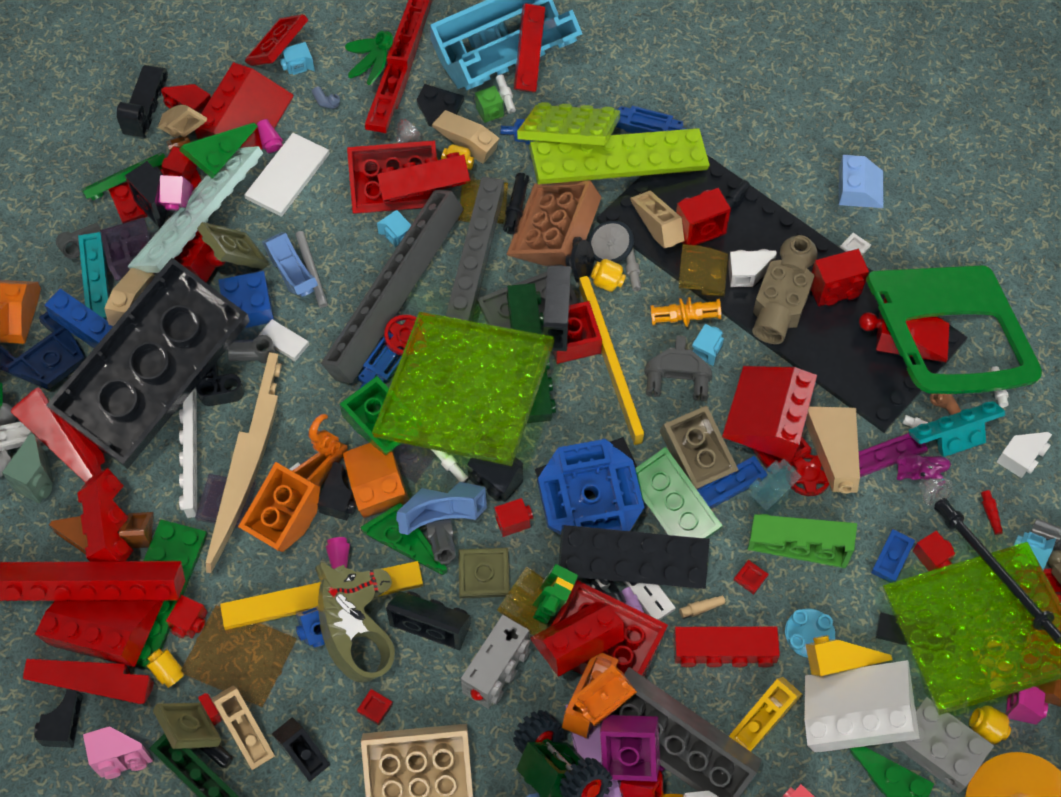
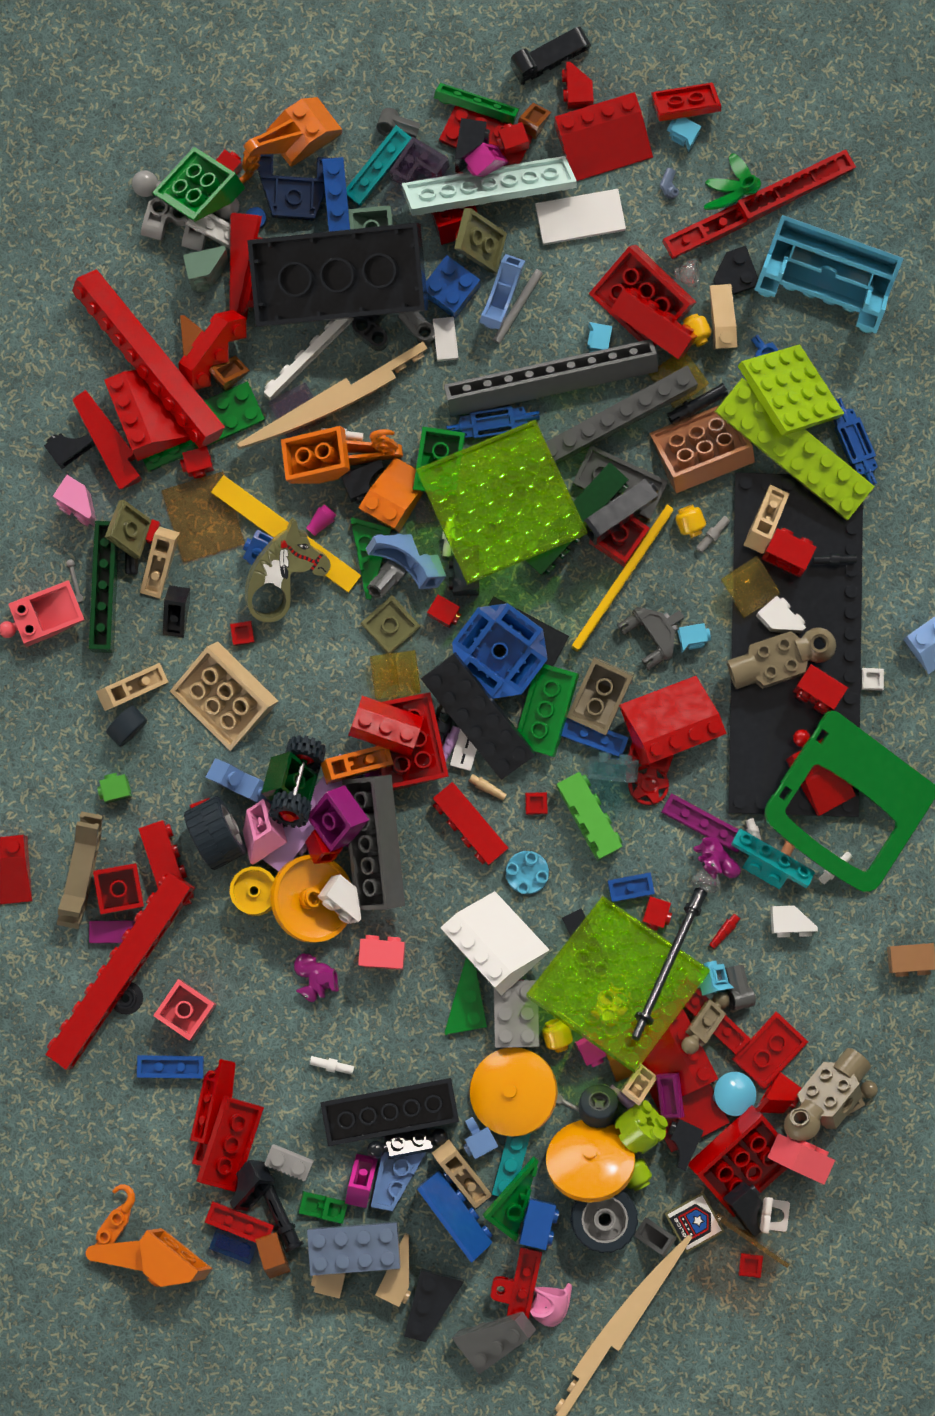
camera: 50 degrees right, 20 degrees up
(126, 293) = (377, 209): tan slope -> none
(165, 667) = (154, 479): yellow brick -> none
(181, 121) = (550, 104): tan slope -> none
(214, 151) = (547, 154): green wing -> none
(269, 137) = (597, 177): dark pink cone -> none
(400, 332) = (516, 417): red wheel -> none
(428, 619) = (326, 617): black slope -> none
(489, 104) = (766, 311): bright green brick -> none
(496, 662) = (330, 686): light grey piece -> none
(506, 94) = (790, 313): white bar -> none
(529, 48) = (839, 299): red plate -> none
(555, 593) = (404, 688): green hips -> none
(581, 258) = (685, 492): black piece -> none
(604, 695) = (352, 775): orange hinge -> none
(611, 241) = (721, 500): light grey wheel -> none
(686, 312) = (706, 601): light orange piece -> none
(766, 713) = (443, 885): yellow slope -> none
(833, 656) = (522, 903): yellow slope -> none
(836, 443) = (687, 785): tan slope -> none

